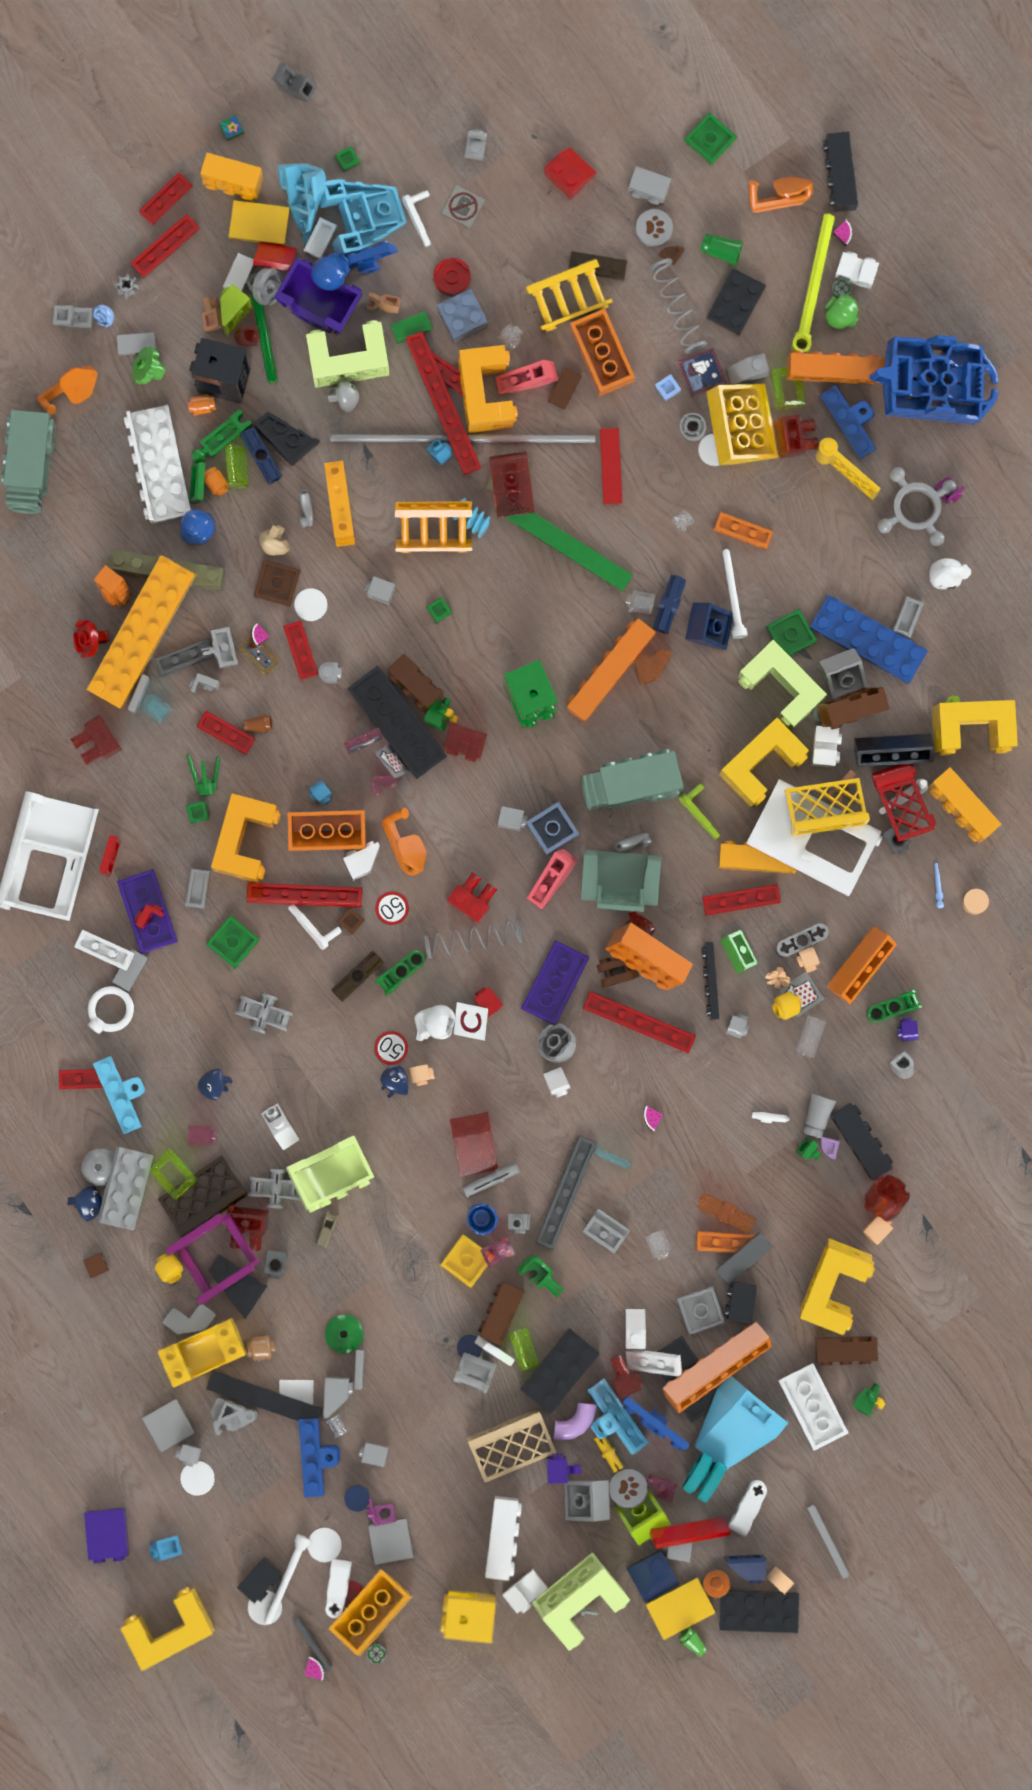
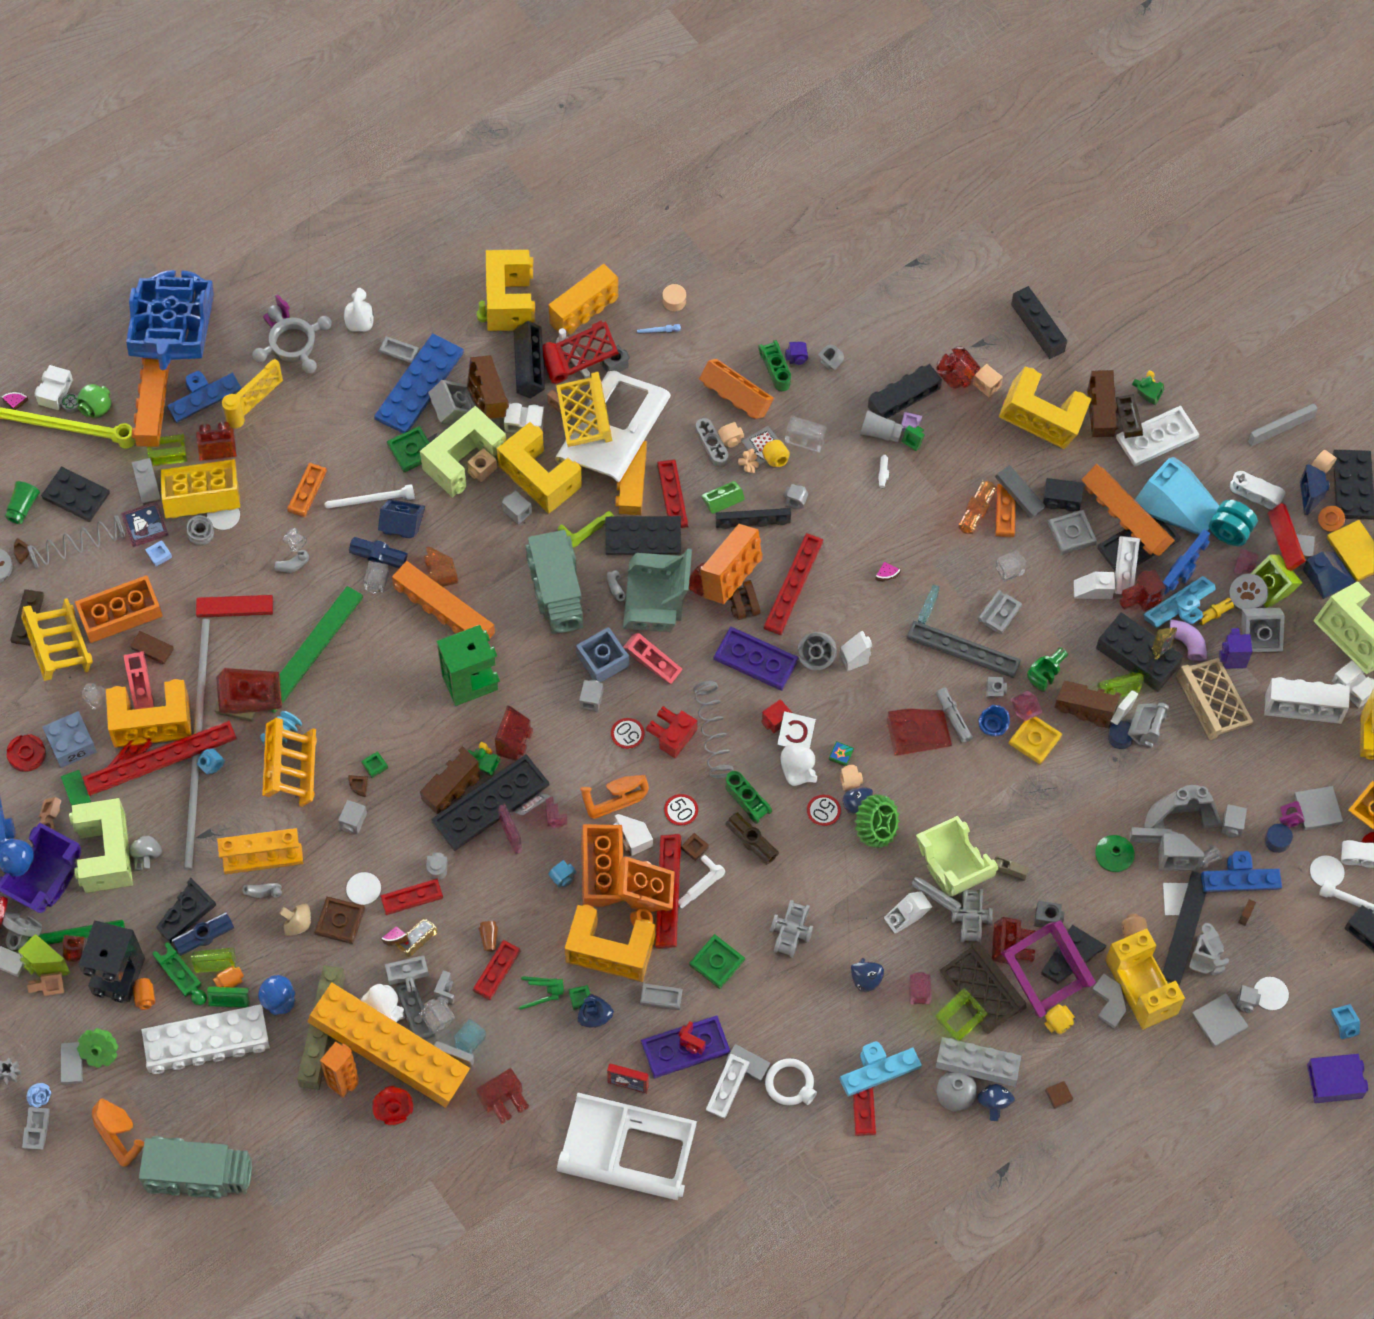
camera: 85 degrees left, 20 degrees down
(176, 676) = (437, 1015): none -> clear brick
(178, 824) = (594, 1012): none -> dark blue piece
(185, 626) = (384, 1000): none -> white piece
(278, 1460) = (1247, 912): none -> reddish brown tile
(295, 1153) = (936, 894): none -> light grey axle
(296, 870) = (645, 888): none -> orange piece
(369, 1097) = (877, 821): none -> bright green gear
(387, 1400) = (1185, 800): none -> light grey cone
(417, 595) = (358, 784): none -> reddish brown tile
(450, 1066) = (841, 753): none -> tile
(474, 855) = (627, 733): none -> sticker
(555, 1391) = (1163, 641): none -> clear yellow slope
(657, 521) = (293, 564): none -> light grey arm
(691, 869) = (643, 535): none -> black plate
(722, 740) = (516, 507): none -> light grey brick
(772, 713) = (481, 458): none -> light nougat brick
(833, 1377) = (1129, 416): none -> dark brown plate
(948, 1287) = (1039, 322): none -> black brick

